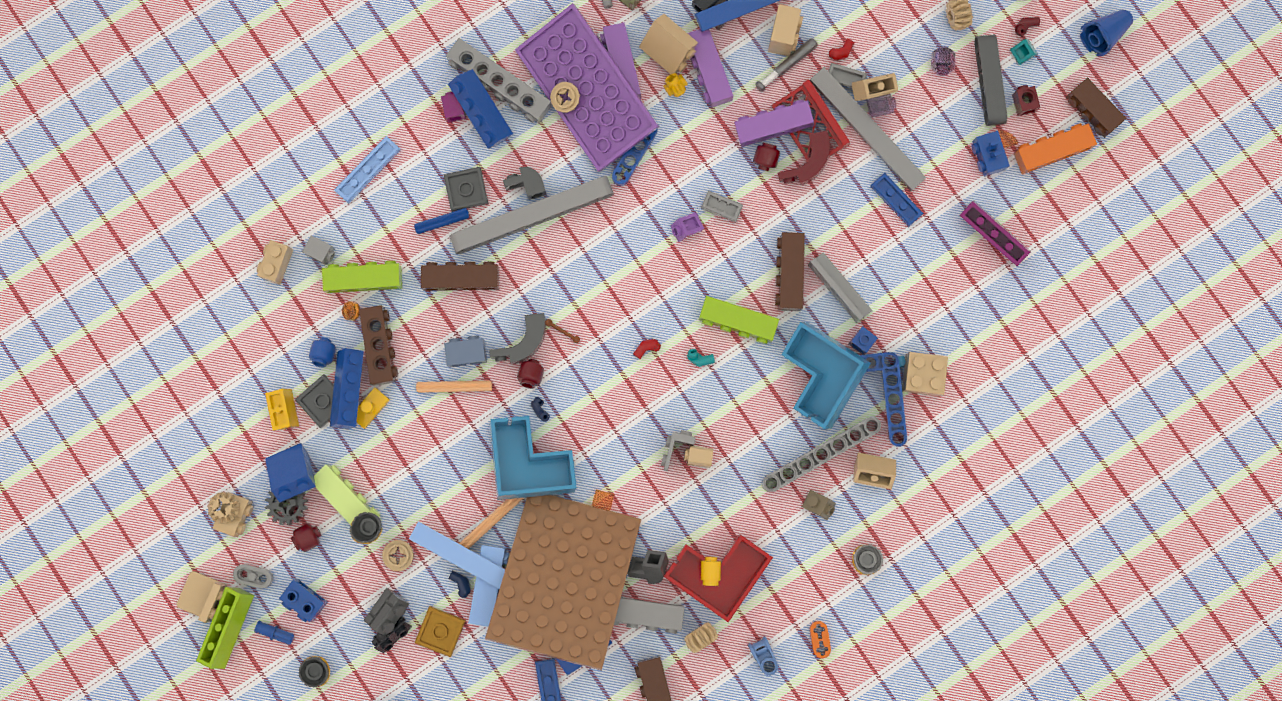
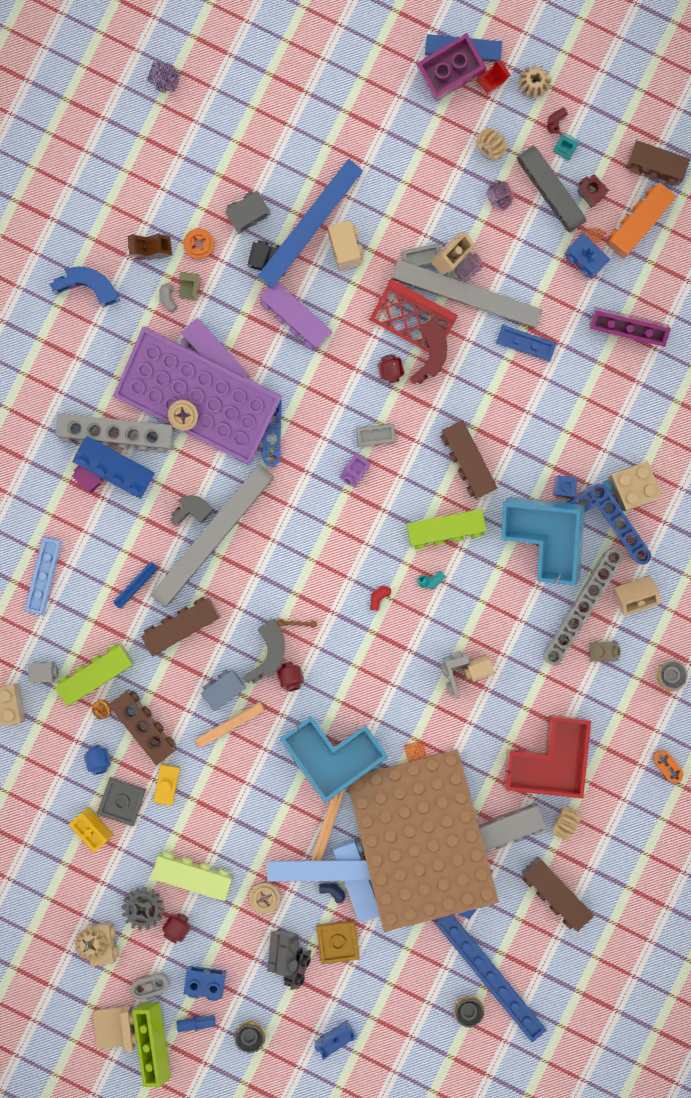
camera: 30 degrees left, 5 degrees up
(290, 472) = (131, 881): blue brick -> none
(346, 389) = (137, 781): blue brick -> none
(366, 528) = (225, 893): dark grey hair -> none
(466, 189) = (140, 544): dark grey tile -> none
(540, 413) = (316, 705): dark blue arm -> none
(650, 568) = (489, 788): dark grey brick -> none
(668, 45) = (249, 316): tan brick -> none
(675, 85) = (274, 348): yellow gear -> none
(711, 571) = (545, 764): yellow brick -> none
(763, 654) = (626, 806): medium blue piece -> none
(774, 123) = (382, 335): medium lavender brick -> none
(789, 62) = (369, 257): flat silver piece -> none
(839, 287) = (519, 450): light grey fence -> none
(843, 52) = (406, 236): red arm -> none
(1104, 32) = (630, 88): blue cone -> none

